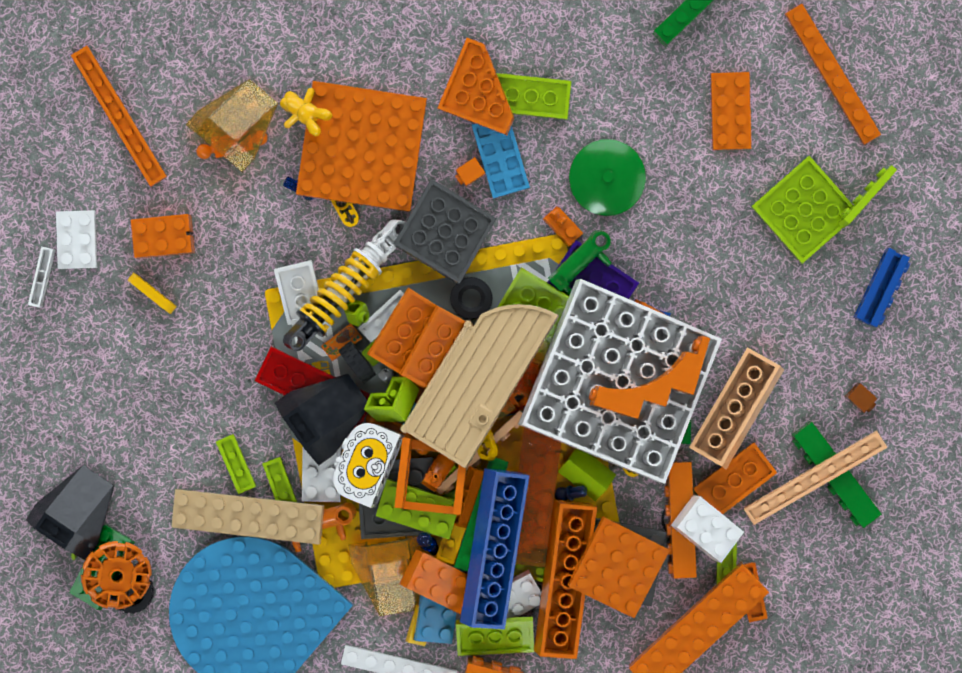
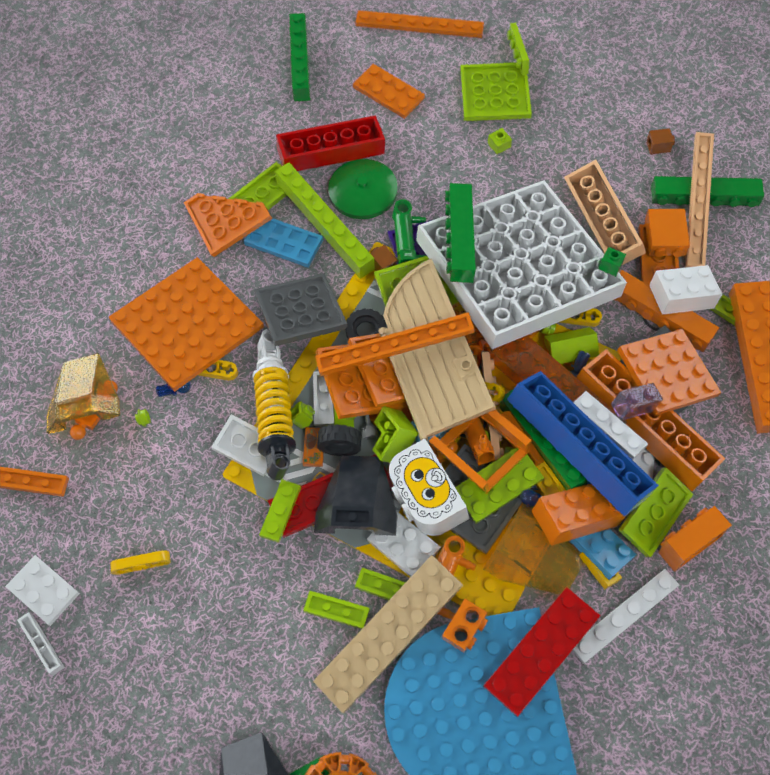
camera: 40 degrees left, 25 degrees down
(162, 236) = (106, 515): orange piece -> none
(257, 187) = (142, 417): none -> lime plate
(269, 364) = (280, 511): none -> lime plate
(291, 562) = (460, 623): none -> orange brick
(304, 111) = (124, 330): yellow animal -> none
(321, 631) = (541, 651): none -> red plate
(456, 351) = (394, 344): none -> orange plate
(469, 172) = (275, 266): orange brick -> none
(528, 558) = (611, 425): none -> white plate
(542, 178) = (325, 220): none -> lime brick
(544, 259) = (383, 258): none -> dark orange brick
(560, 566) = (636, 401): none -> clear purple brick
(563, 226) = (372, 237): orange plate -> none
(598, 321) = (461, 233): none -> green brick
(623, 117) = (331, 143): none -> red brick
(666, 458) = (612, 261): none -> green plate
(679, 377) = (551, 217): orange arch -> none
(744, 258) = (499, 141): none -> lime plate
(757, 474) = (667, 232): none -> orange brick
(881, 288) = (590, 83): blue brick -> none

